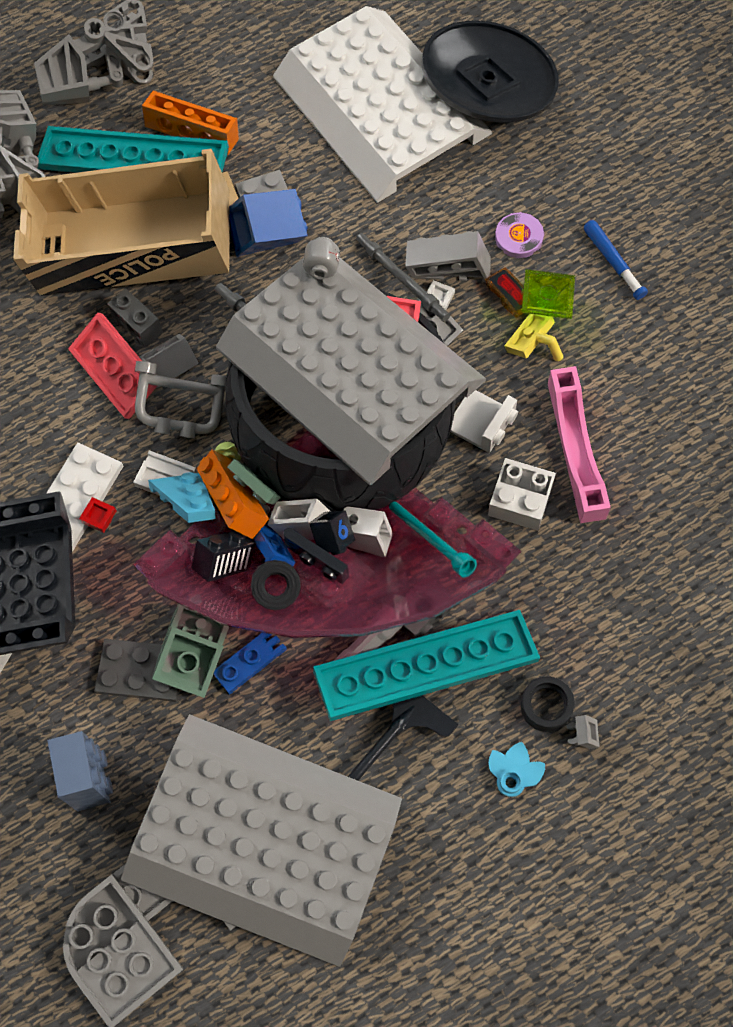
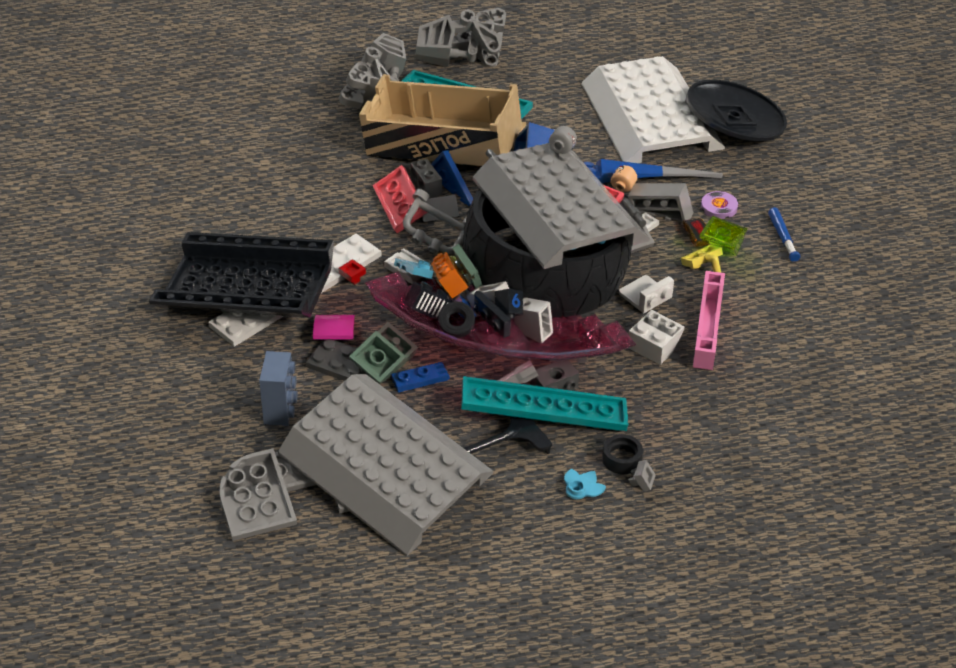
camera: 15 degrees right, 25 degrees down
(109, 619) = (334, 327): none -> dark pink slope
(168, 306) = (451, 177): none -> blue wing
(188, 120) = (497, 78): orange brick -> none
(369, 226) = (605, 169): none -> blue plate
(392, 241) = (624, 178): none -> light nougat head
(461, 562) = (591, 340): teal piece -> none

